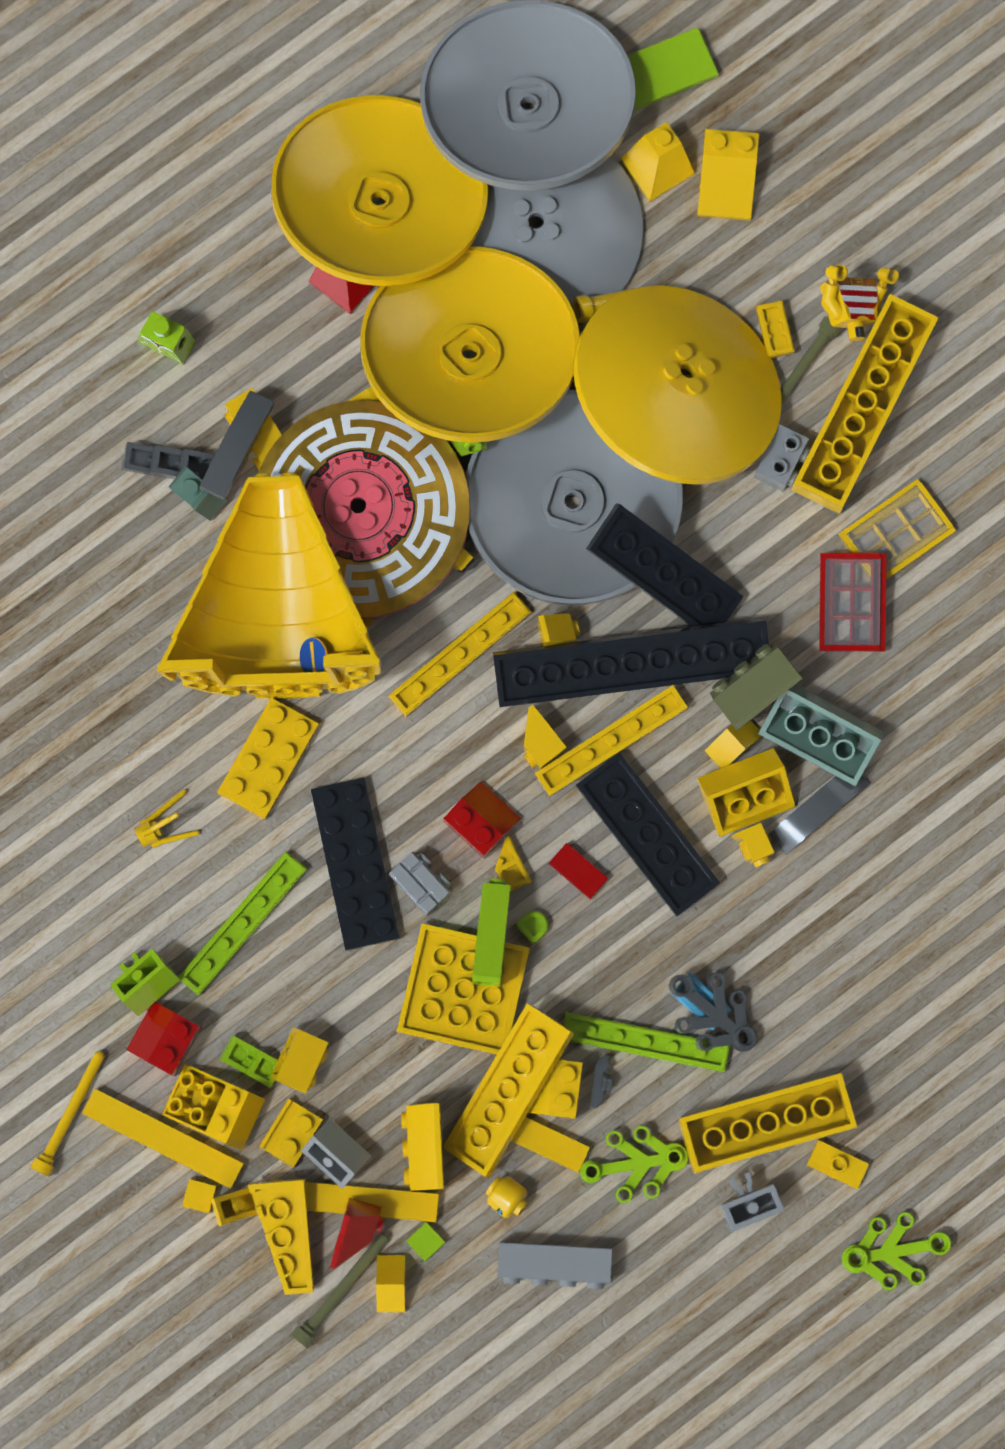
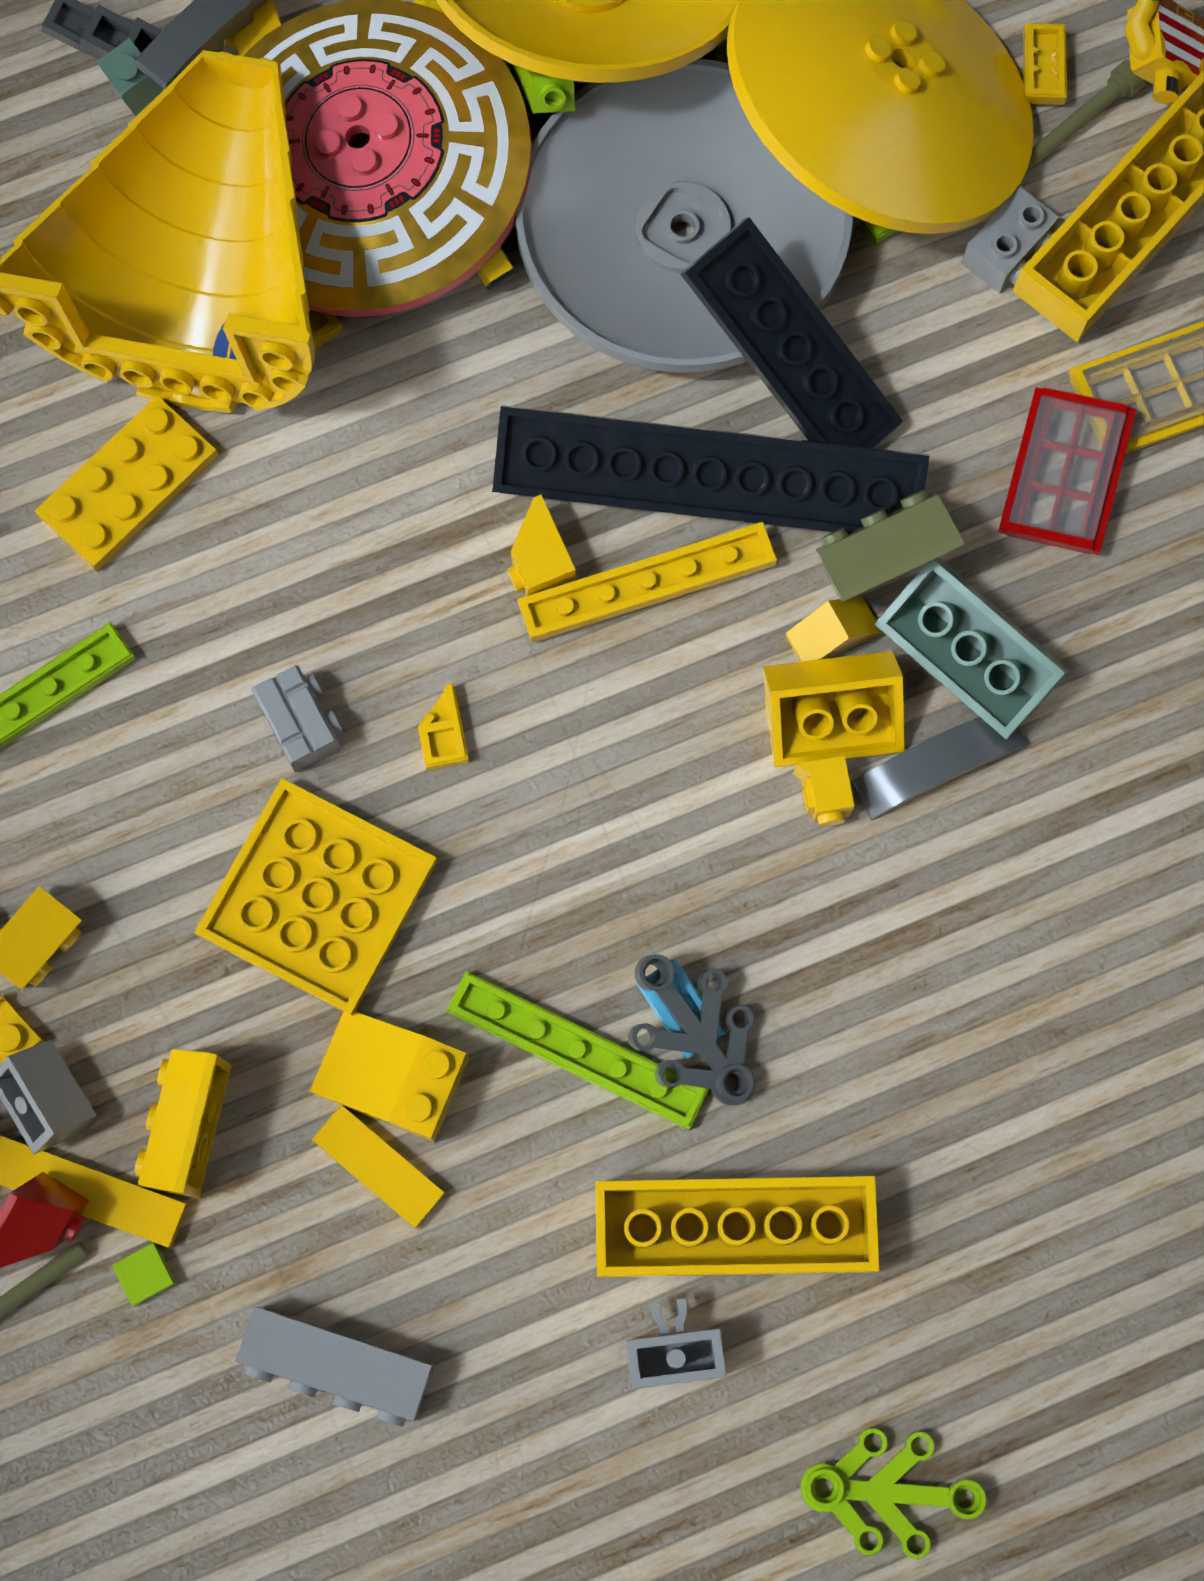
camera: 15 degrees right, 5 degrees down
(355, 864) = (209, 669): black plate -> none
(390, 1283) = (68, 1327): yellow slope -> none
(459, 654) = (455, 404): yellow tile -> none
(481, 819) = (417, 648): red slope -> none
(491, 933) = (378, 818): lime slope -> none
(507, 1197) = (290, 1236): yellow head -> none
(508, 1090) = (337, 1067): yellow plate -> none
(533, 926) = (452, 828): lime tile -> none
(557, 629) = (608, 392): yellow slope -> none
(578, 871) = (544, 763): red tile -> none
(601, 1081) = (490, 1093): dark grey piece -> none
(639, 1163) = (515, 1239): lime plant -> none
(647, 834) = (666, 735): black plate -> none
(837, 1164) = (832, 1325): yellow plate -> none

